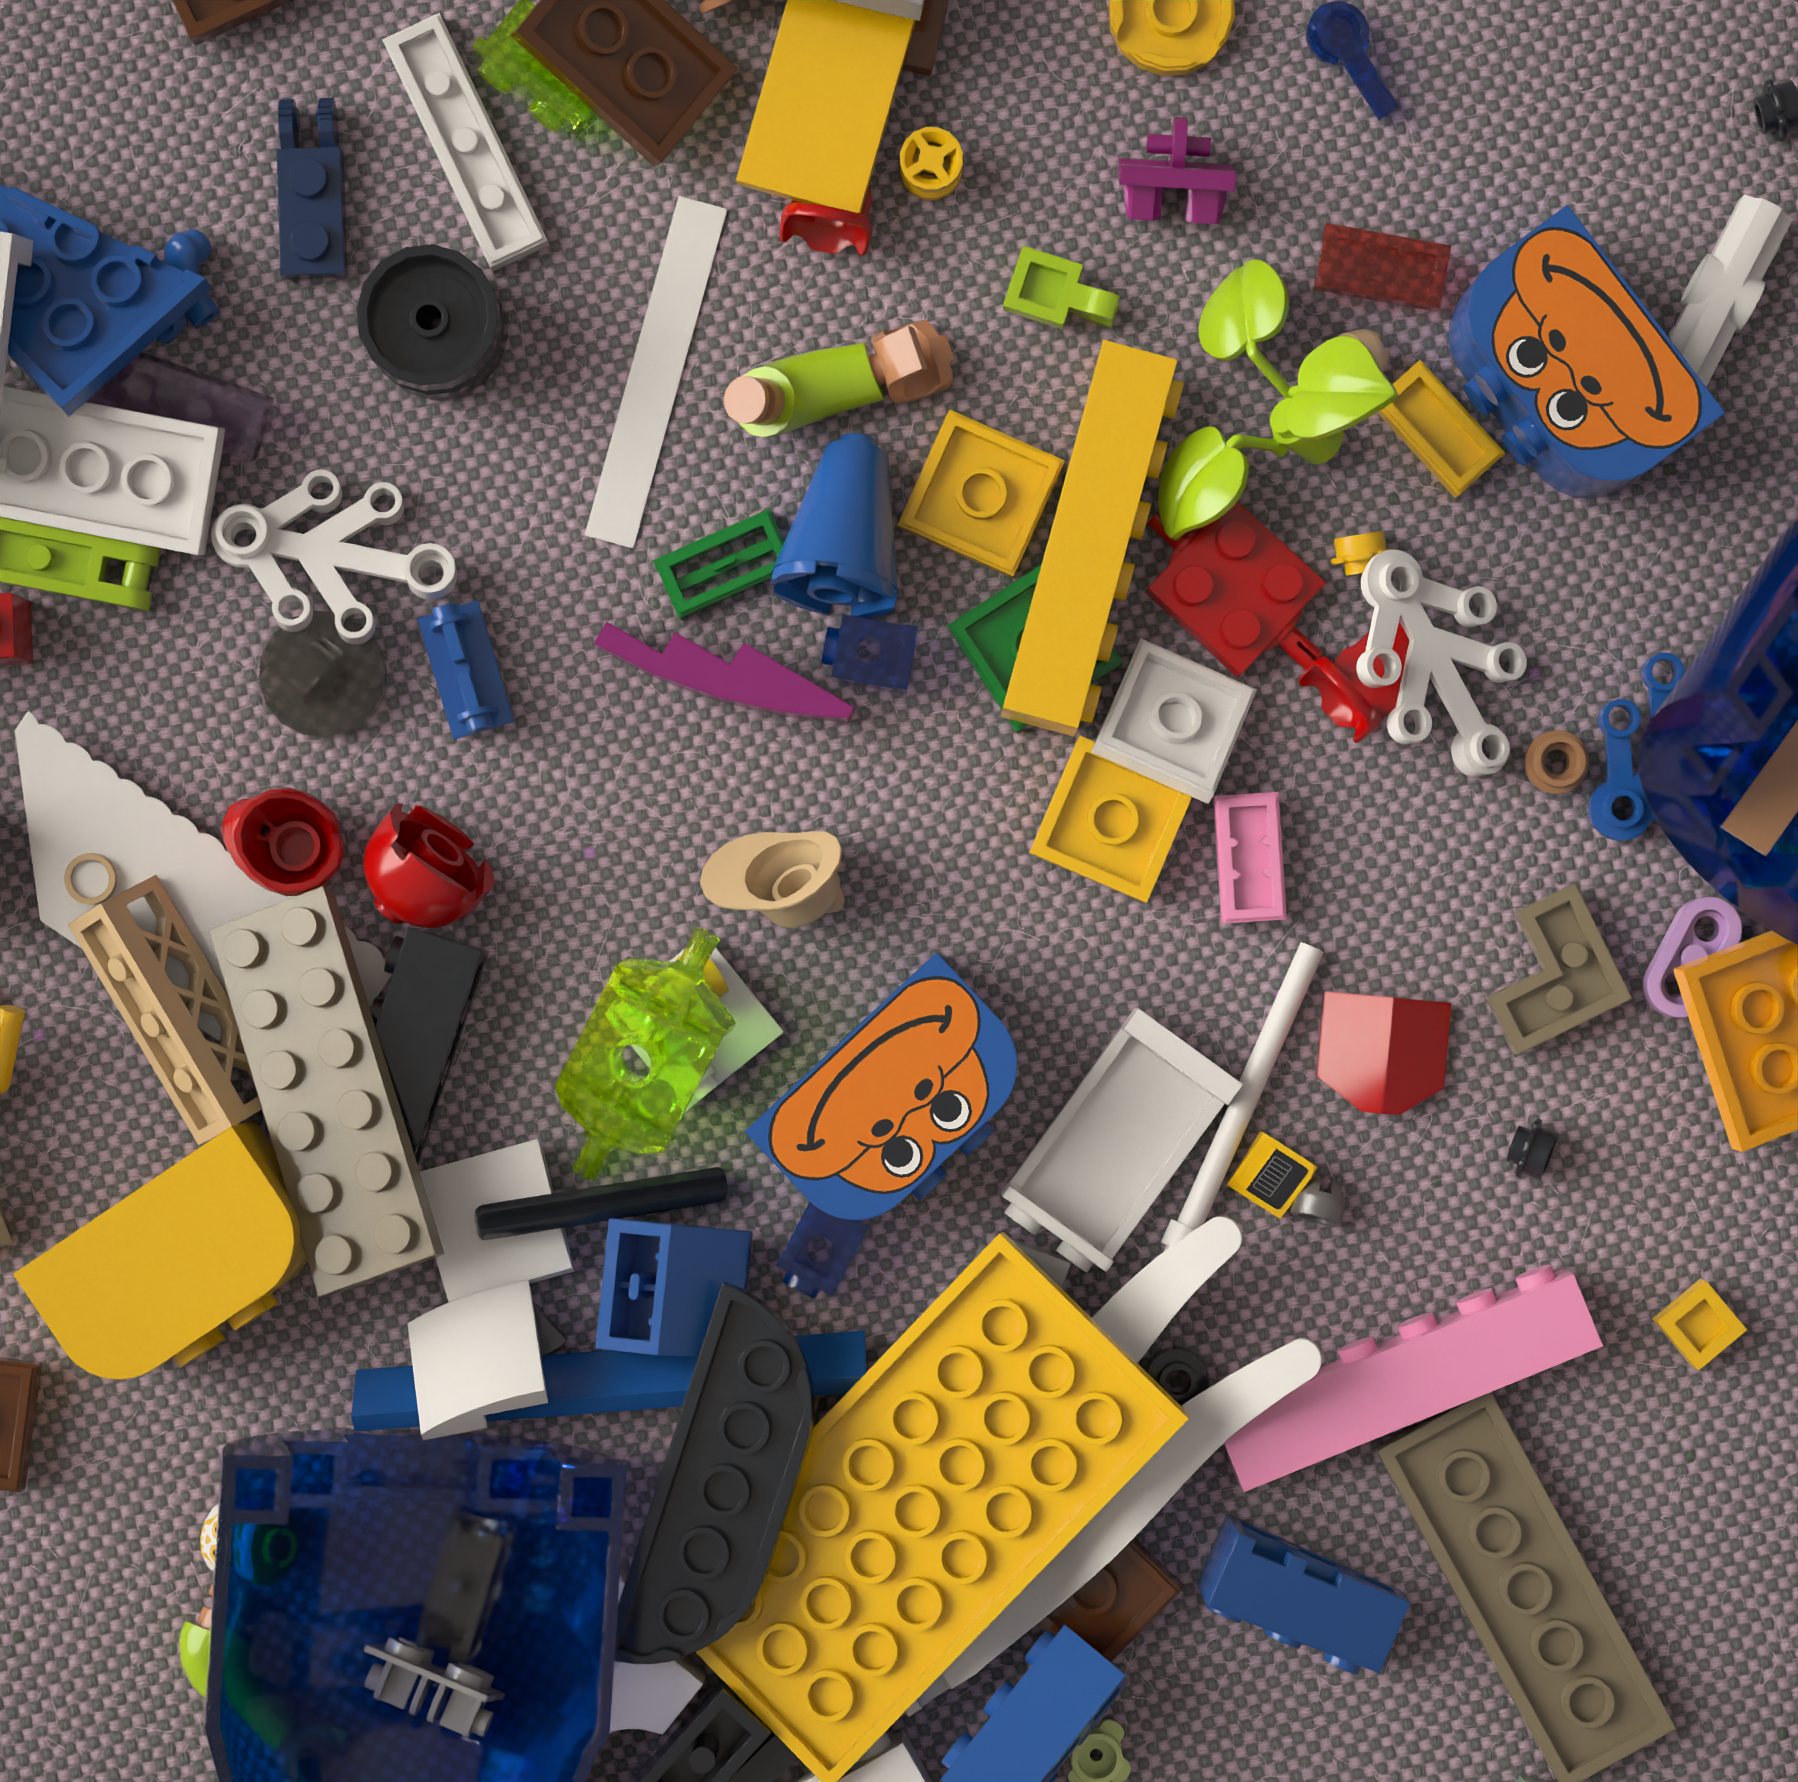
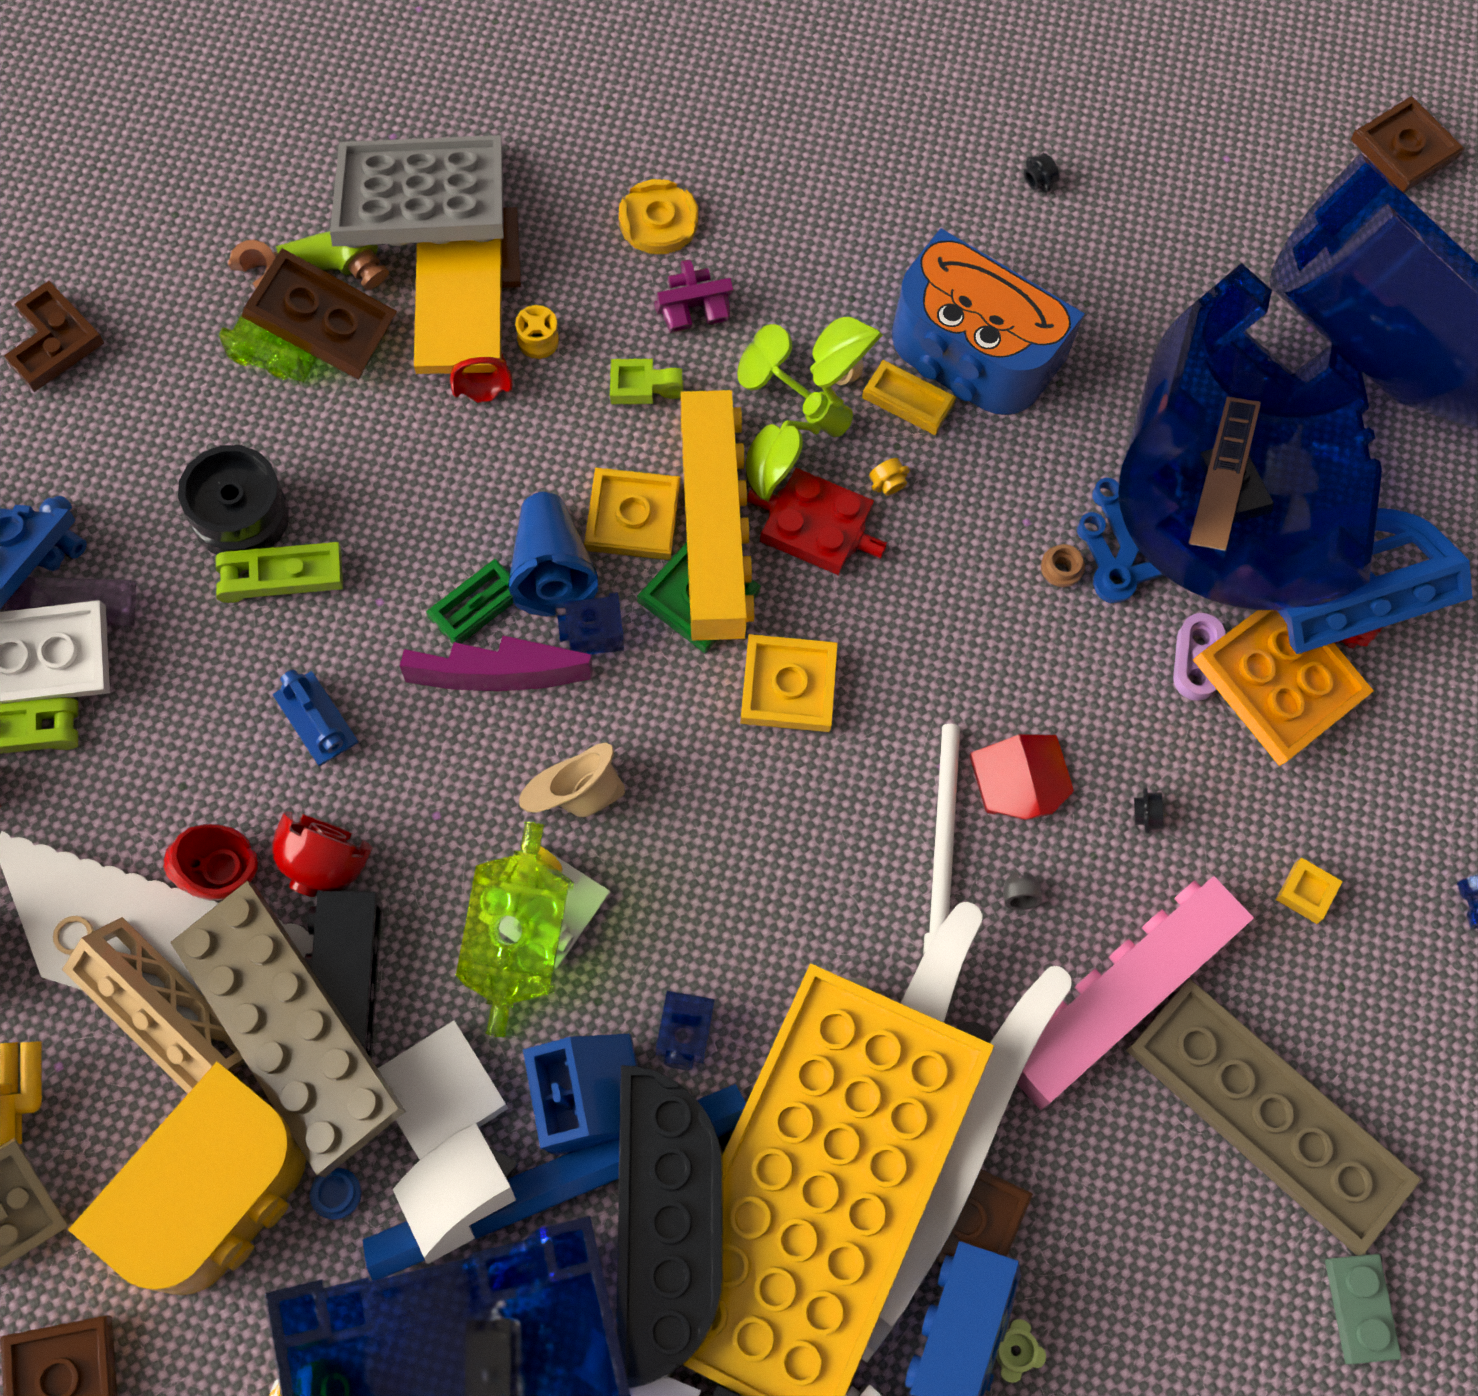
camera: 25 degrees left, 20 degrees down
(311, 196) = (134, 459): dark blue hinge -> none
(320, 680) = (214, 750): clear smoke tile -> none
(324, 550) = (196, 666): white plant -> none
(339, 1313) = (335, 1194): none -> blue plate
(465, 142) = (230, 399): white tile -> none
(471, 439) = (279, 571): none -> lime plate
(600, 1203) = (509, 1048): black axle -> none
(655, 372) = (394, 505): white sticker -> none
(837, 379) = (502, 476): piece -> none
(893, 1098) = (701, 900): brick -> none
(1117, 1141) = (869, 889): white panel -> none
(1174, 721) = (807, 609): white plate -> none
(1249, 857) = (889, 680): bright pink plate -> none
(1271, 1174) = (982, 881): slope -> none
(1301, 1597) = (1119, 1171): blue wedge -> none
(1338, 37) = (766, 202): clear blue plate -> none
(1346, 697) = (923, 549): red piece -> none
(1381, 267) = (818, 312): clear red plate -> none
(1432, 657) = (924, 489): white plant -> none
(1574, 978) = (1129, 691): dark tan plate -> none
(1728, 284) = (1052, 262): white piece -> none

